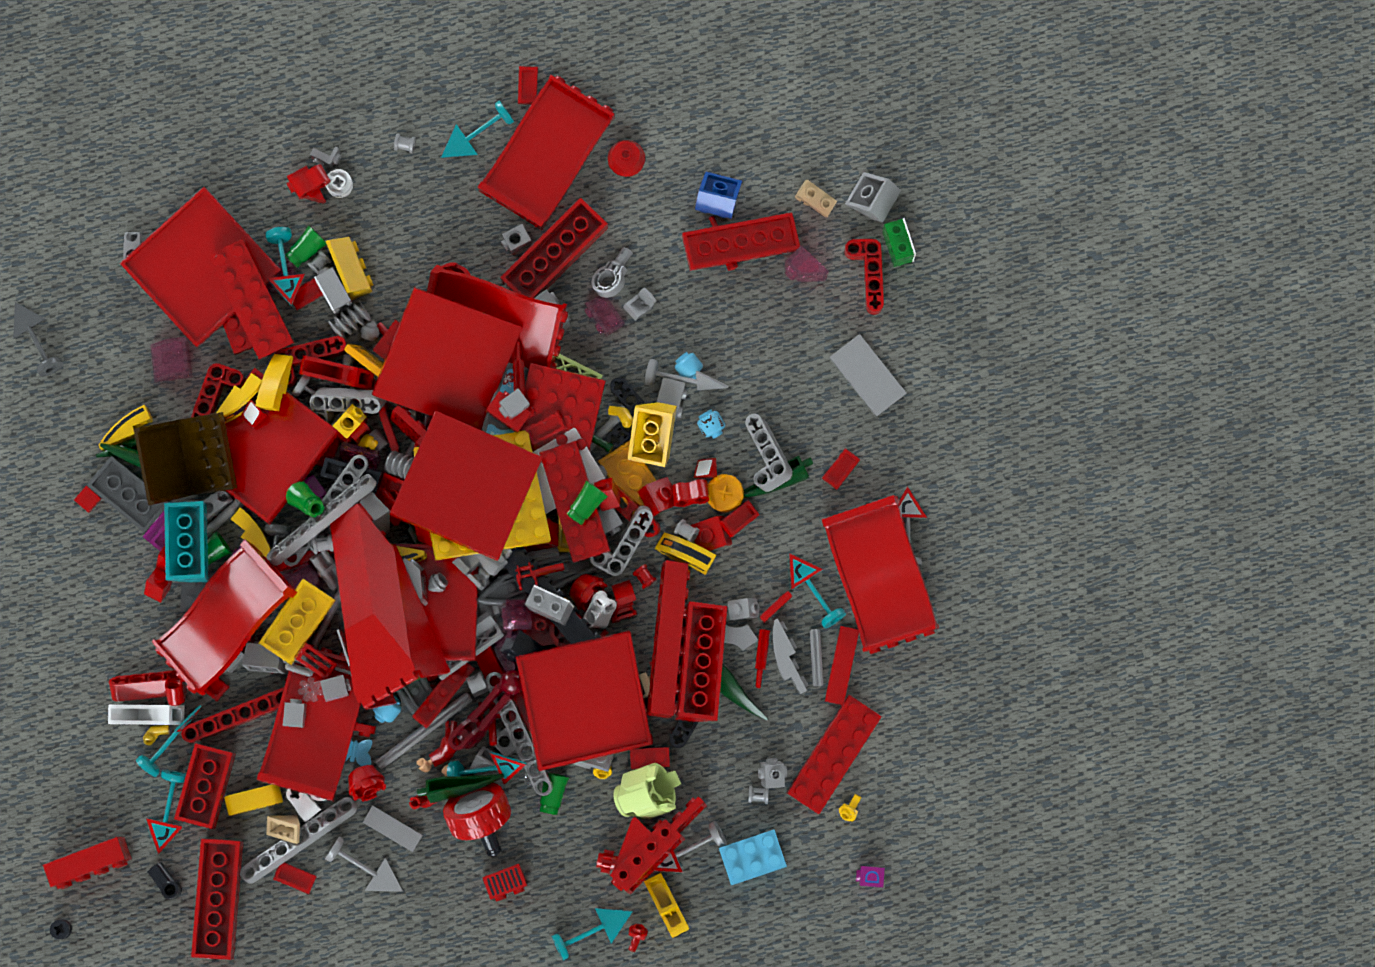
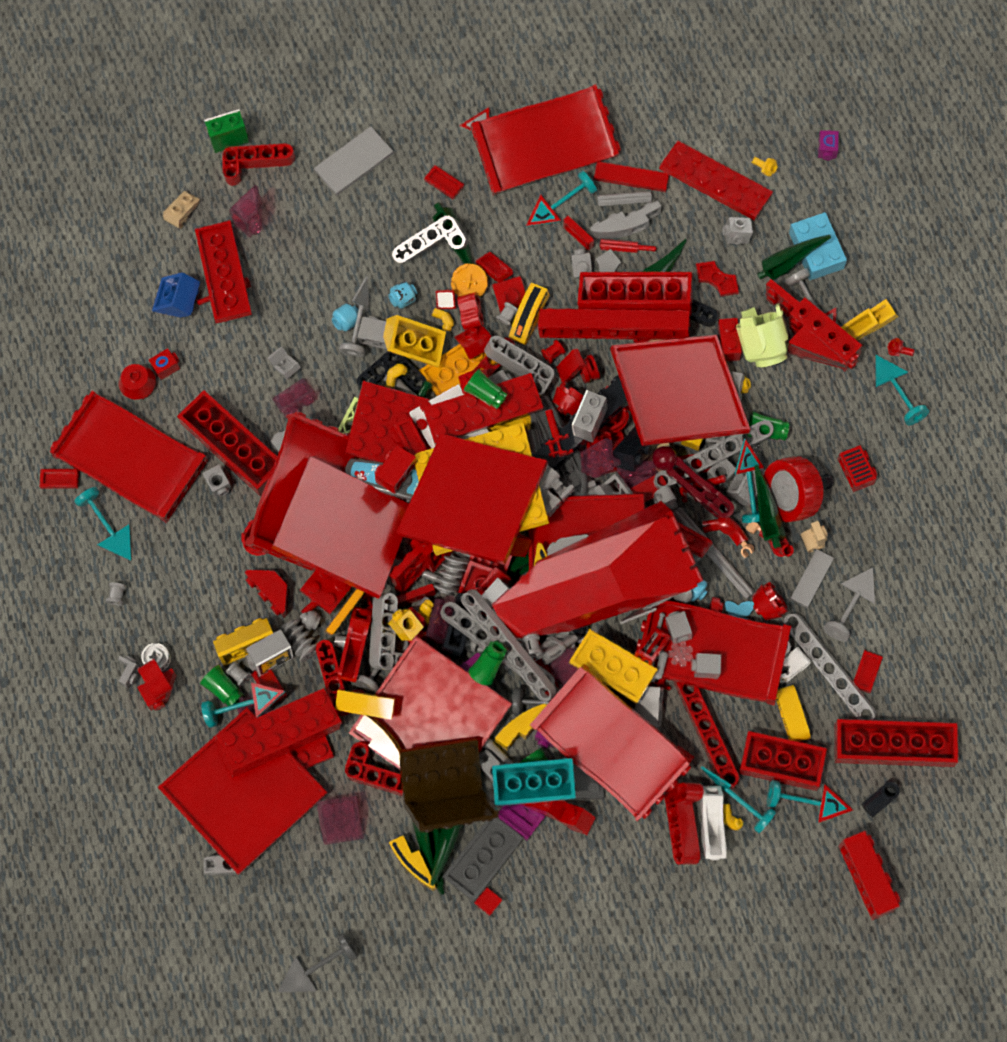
camera: 90 degrees left, 10 degrees down
(64, 928) = (935, 906): black wheel -> none
(253, 414) = (397, 727): slope -> none
(284, 827) = (818, 681): tan slope -> none
(400, 291) = (271, 589): none -> red slope
(431, 833) = (814, 537): none -> tan plate
(437, 583) = (568, 530): light grey plate -> none
(513, 404) = (389, 457): light grey brick -> none
(518, 370) = (361, 463): red axle -> none
(600, 611) = (586, 381): white piece -> none
(606, 861) = (830, 375): red gear -> none
(613, 268) = (249, 388): light grey pin -> none
(644, 185) = (164, 363): none -> red brick
(685, 469) = (445, 317): none -> yellow arm
(728, 742) = (724, 283): none -> red tile
(736, 821) = (787, 258): none -> dark green piece
(758, 794) = (759, 238): light grey bush -> none
(873, 196) = (180, 158): light grey slope -> none

